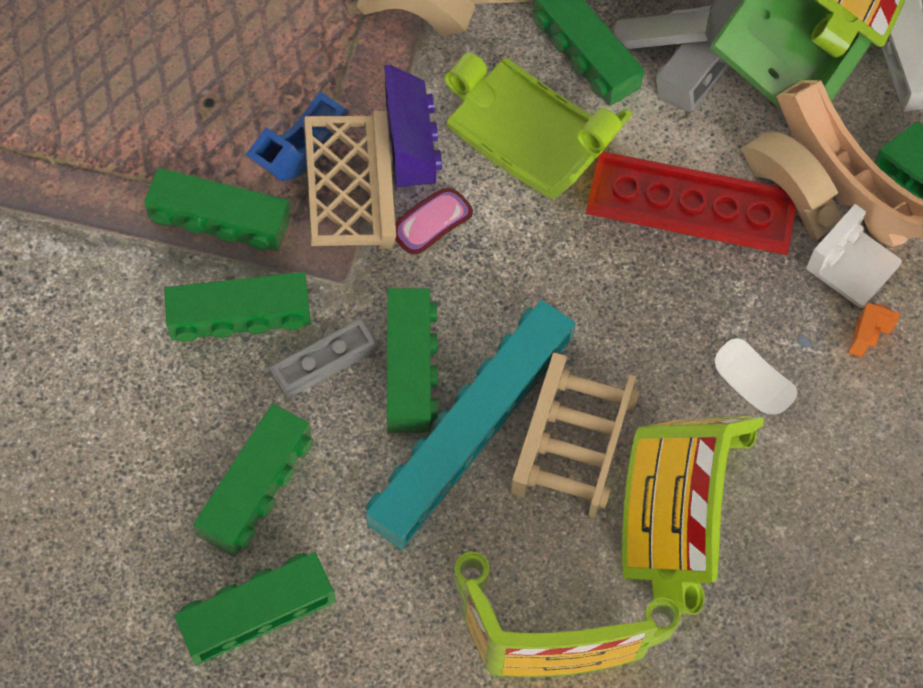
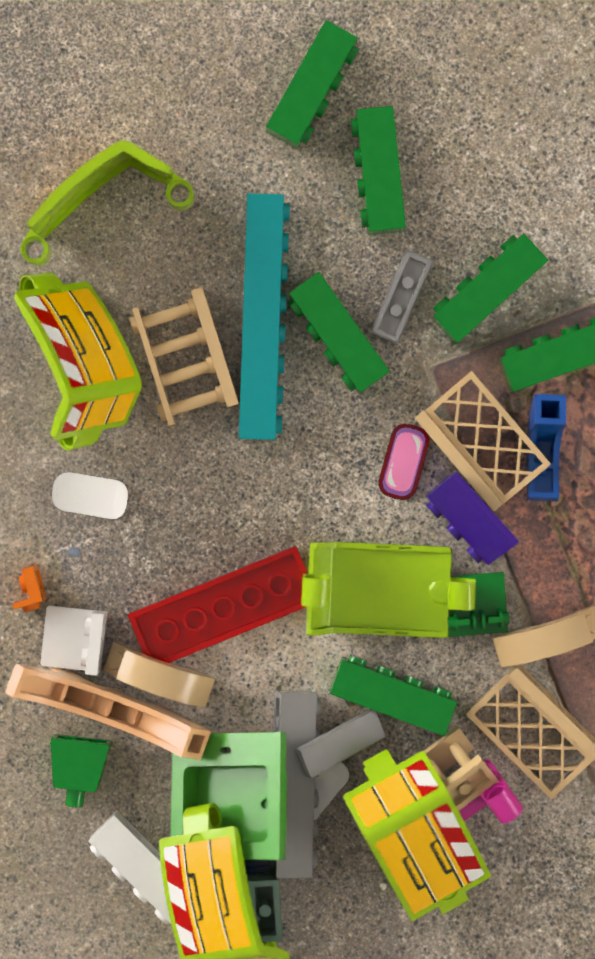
camera: 145 degrees right, 25 degrees up
(446, 56) = (490, 608): none -> green hinge

